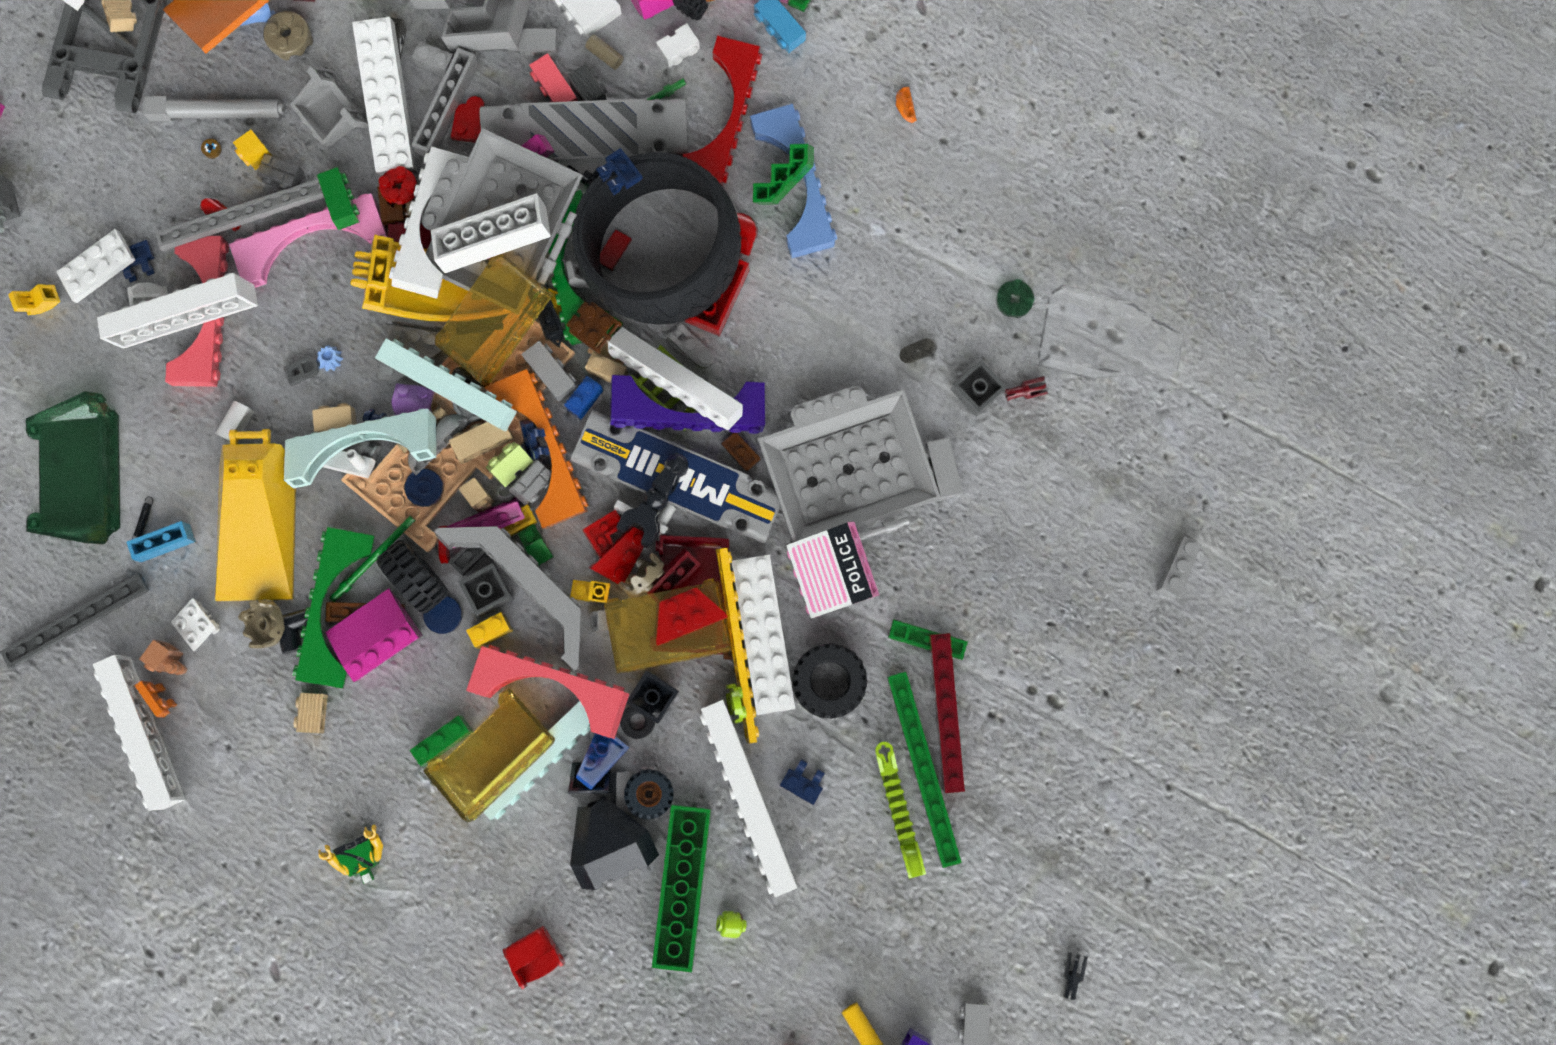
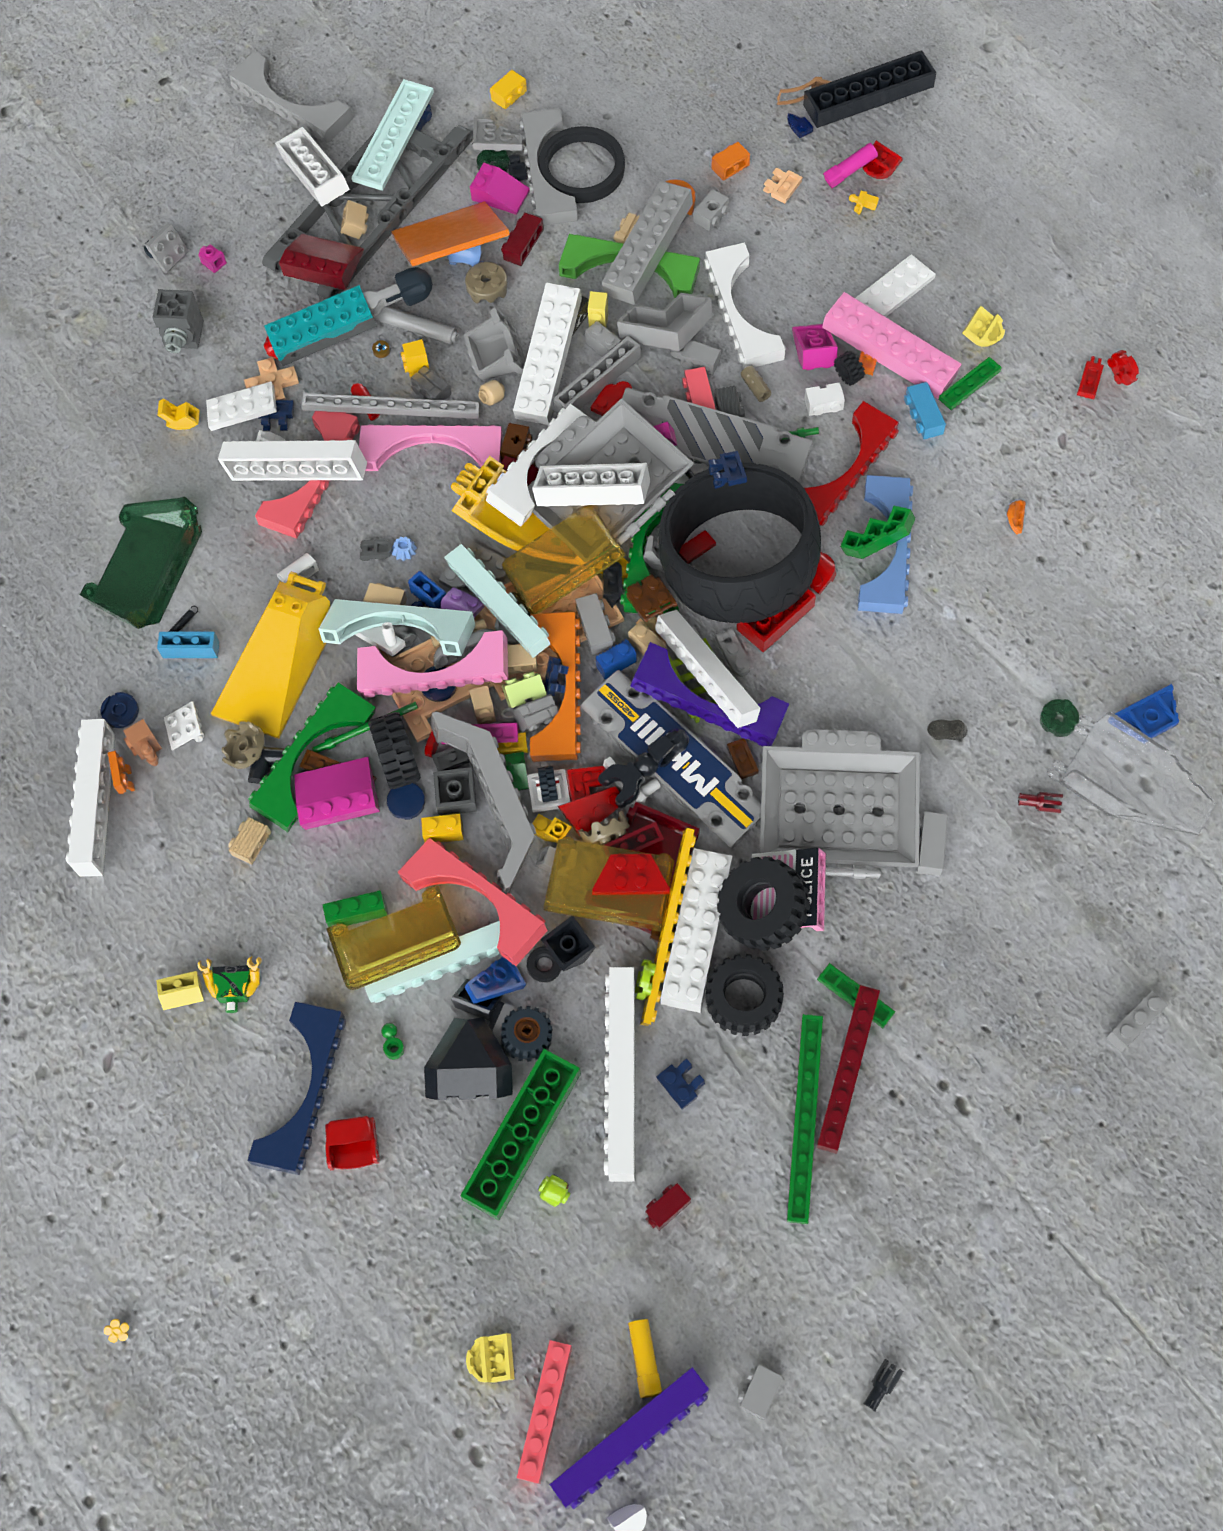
camera: 25 degrees right, 15 degrees down
(74, 621) = (83, 685): dark grey plate -> none
(105, 73) = (320, 261): none -> dark red slope
(111, 219) = (279, 378): none -> light nougat plate
(123, 631) = (119, 710): none -> dark blue tile
(155, 132) = (340, 317): none -> piece
(312, 882) = (179, 990): none -> light yellow brick
(338, 198) = (471, 419): green brick -> none
(345, 157) = (491, 392): none -> tan head
(372, 396) = (426, 590): none -> blue brick
(391, 178) = (519, 423): red plate -> none
(415, 27) = (598, 308): none -> light yellow brick
(462, 456) = (483, 664): none -> bright pink arch
(477, 983) = (287, 1146): none -> dark blue arch
(522, 840) = (389, 1032): none -> green plate
(573, 553) = (548, 789): none -> white plate
(790, 597) = (784, 918): none -> black tyre
(835, 899) = (666, 1208): none -> dark red brick
(906, 837) = (765, 1142): lime piece -> none
(978, 388) = (993, 782): dark grey brick -> none
(1095, 266) = (1152, 714): none -> blue wing

